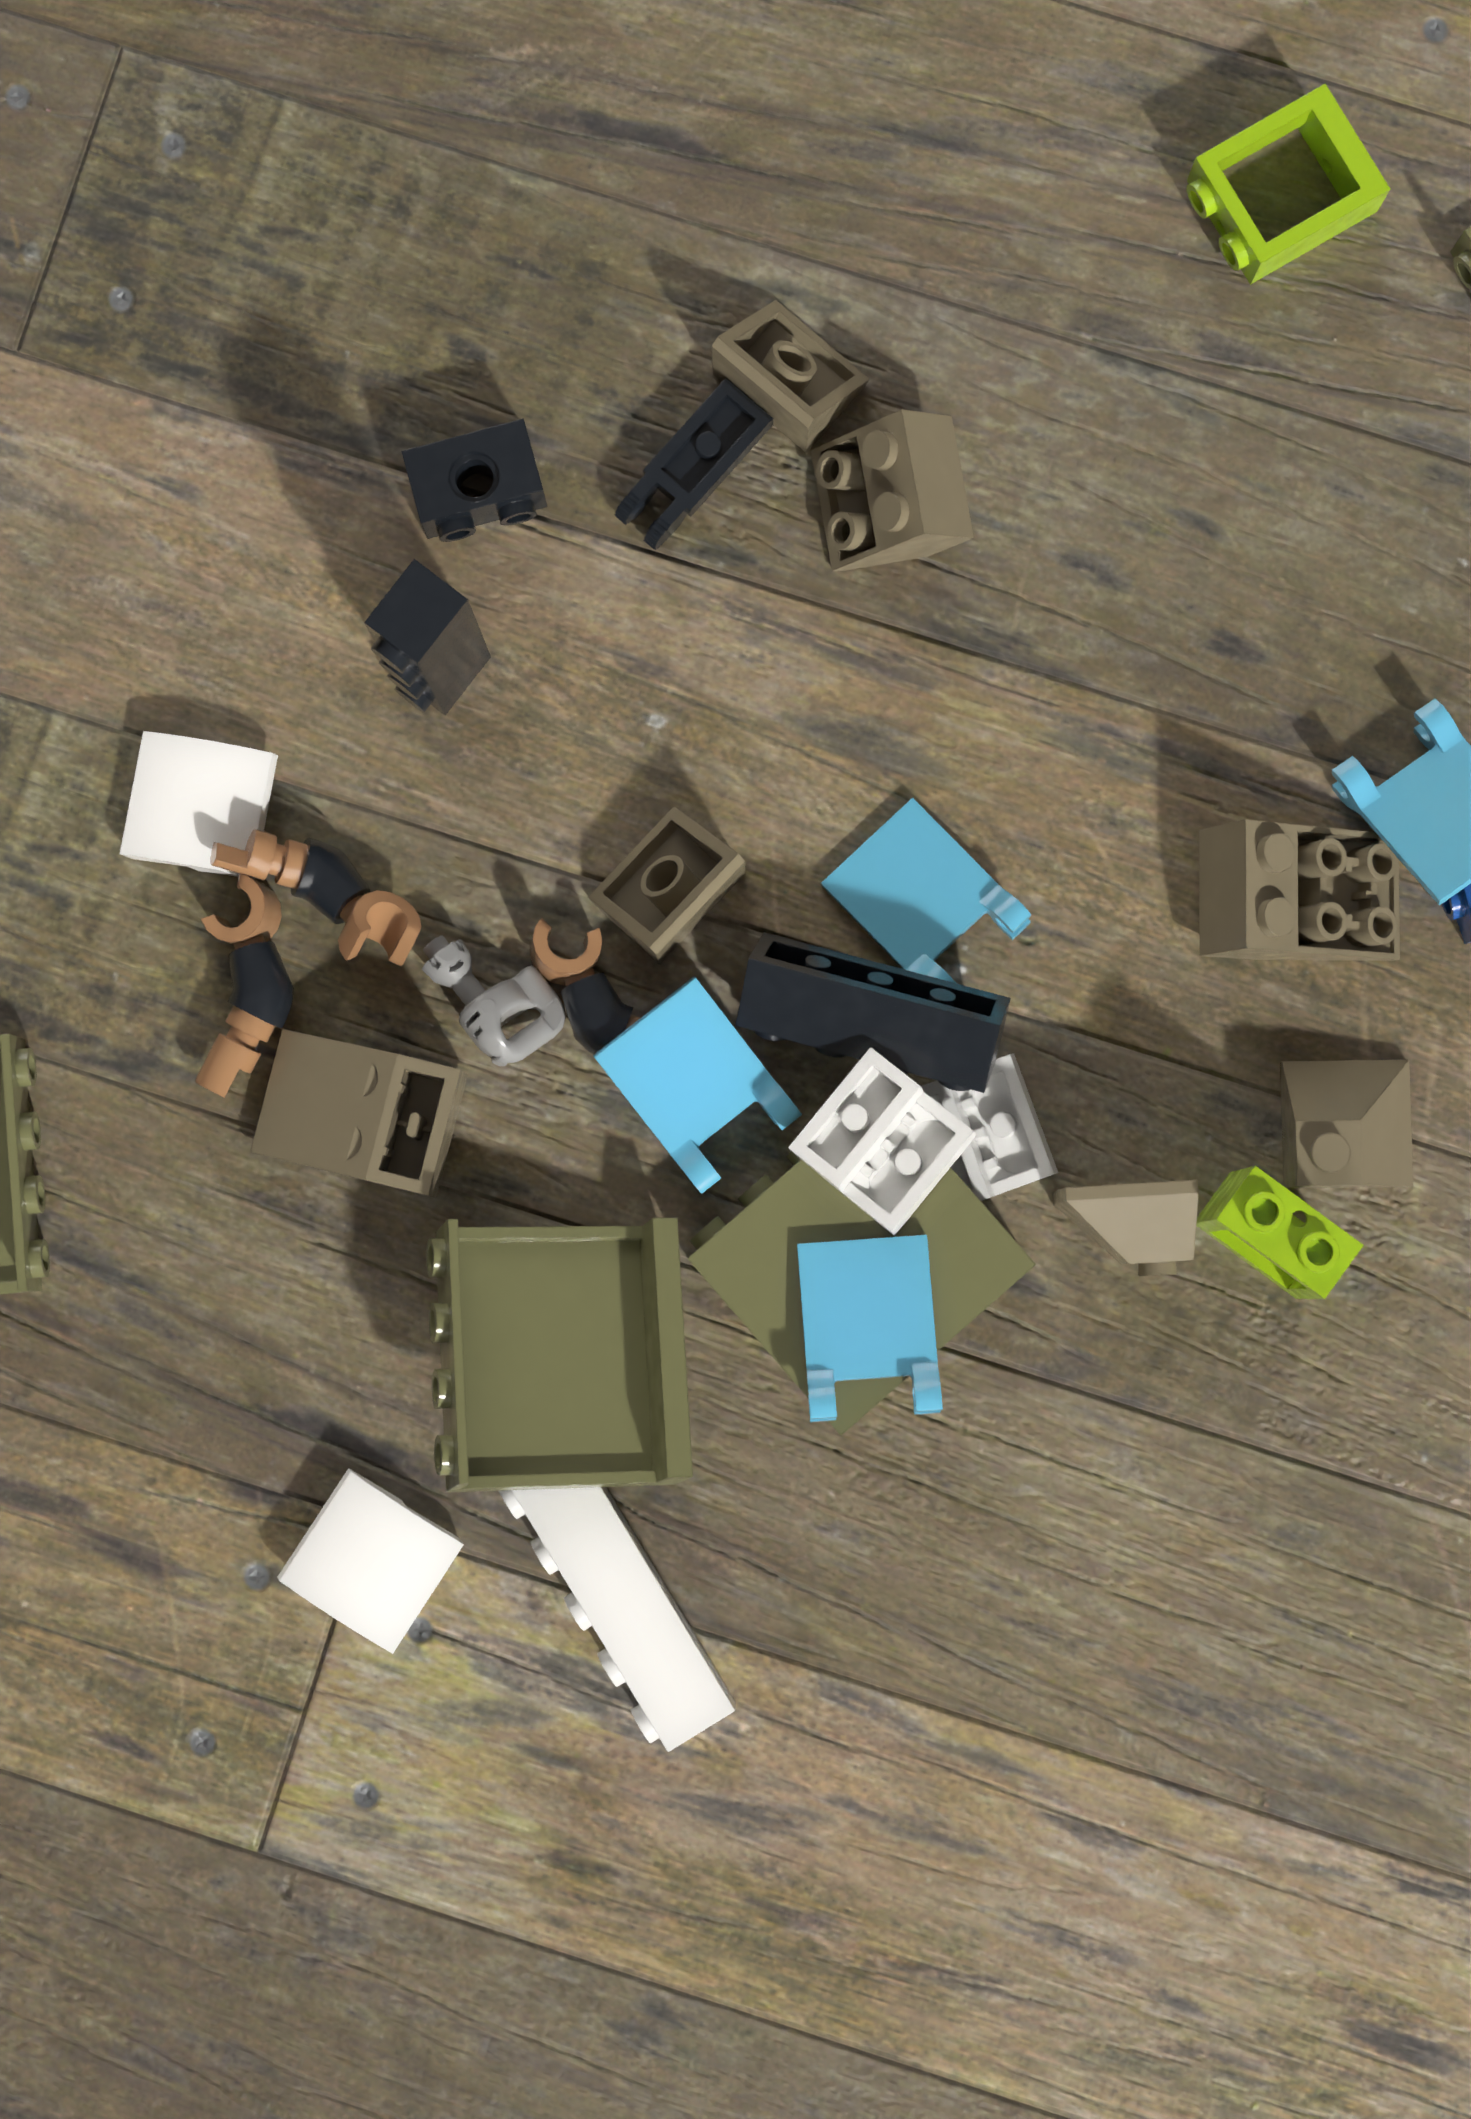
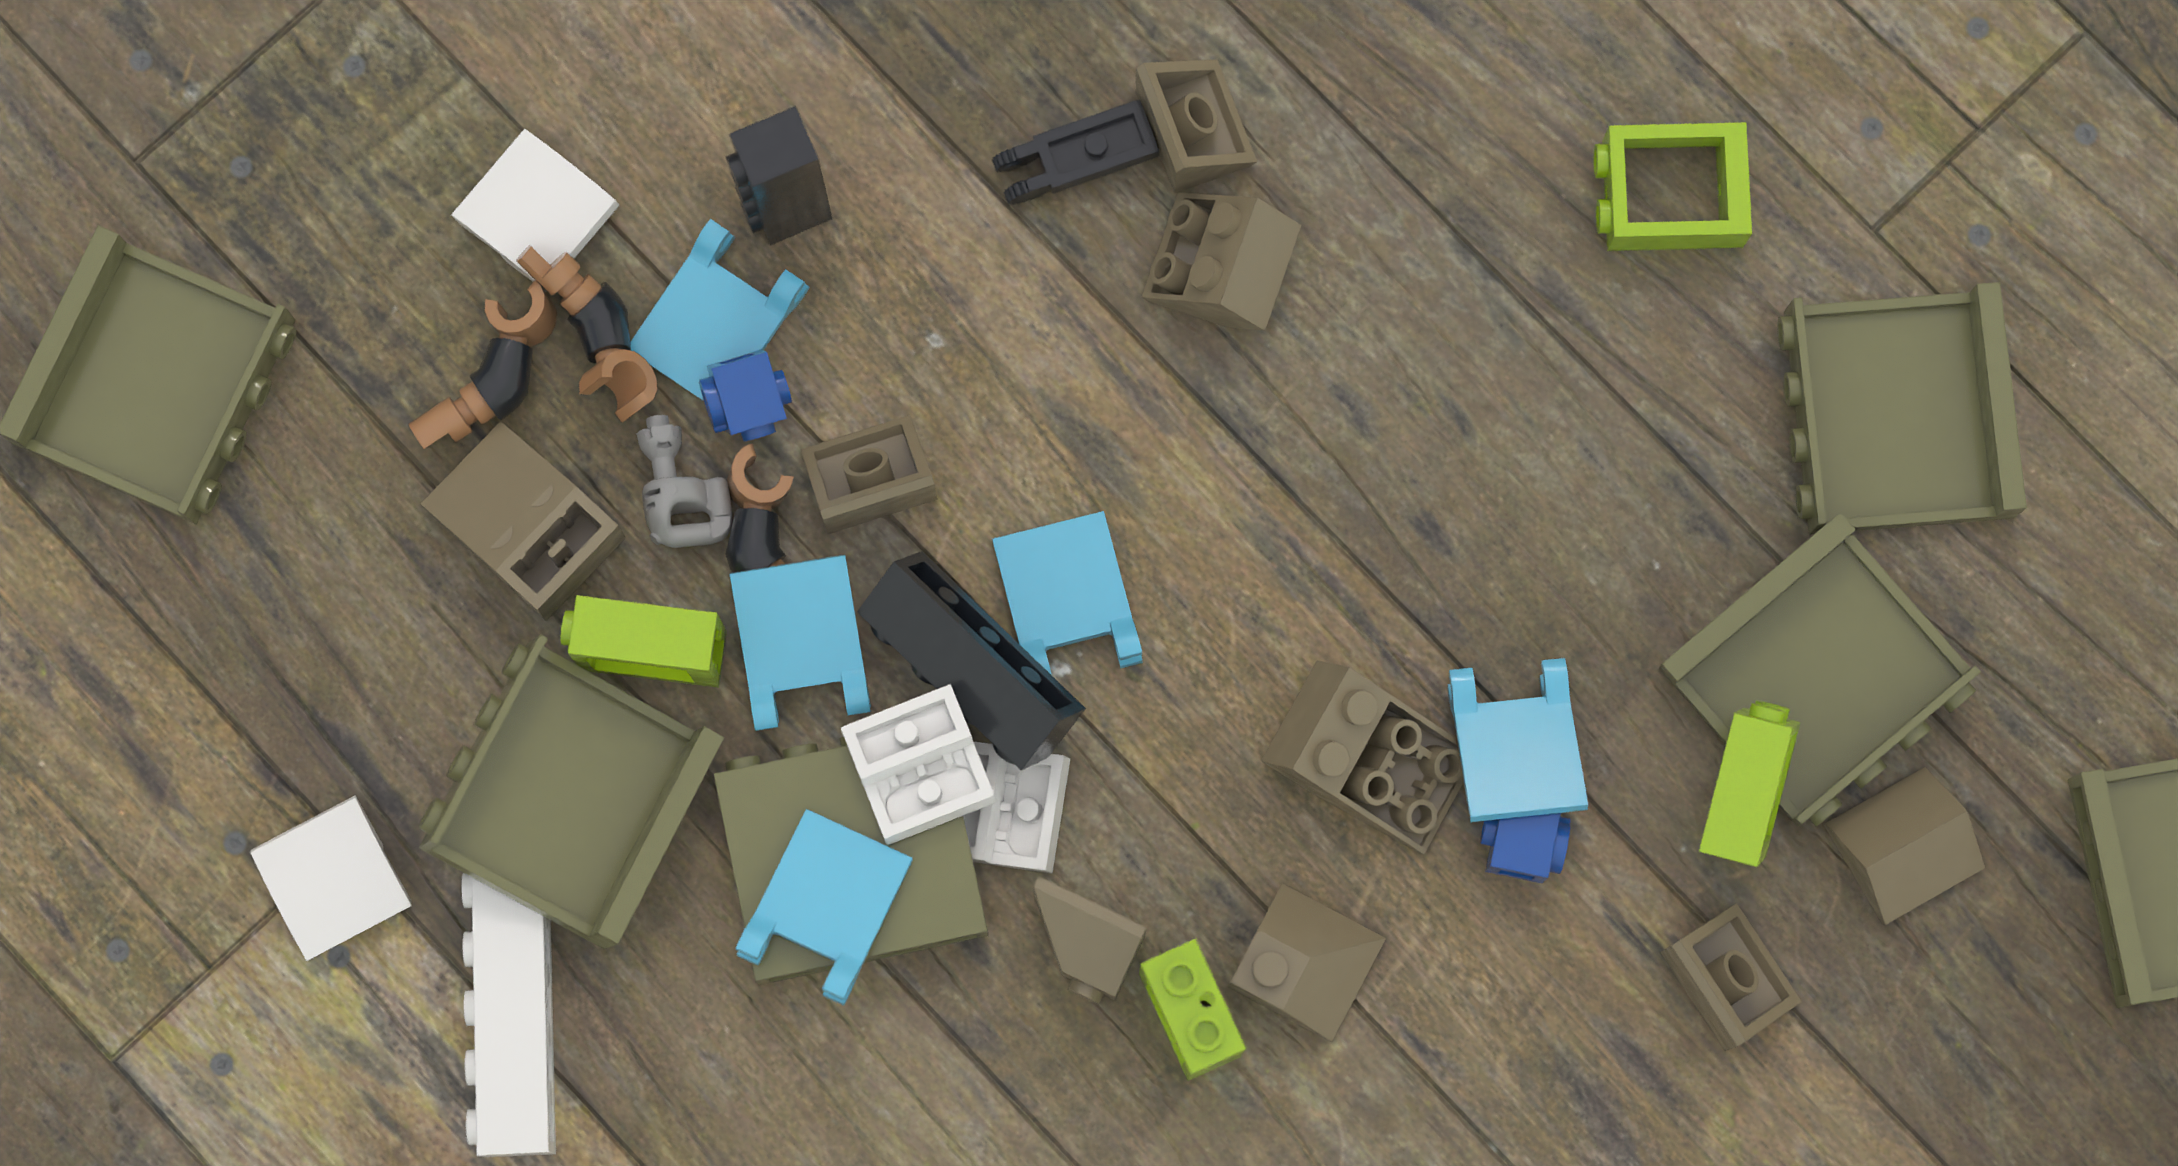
camera: 25 degrees right, 5 degrees down
(433, 821) = (711, 314): none -> medium azure flag
(442, 466) = (873, 50): black brick -> none
(507, 874) = (745, 395): none -> blue brick
(546, 1167) = (645, 640): none -> lime window

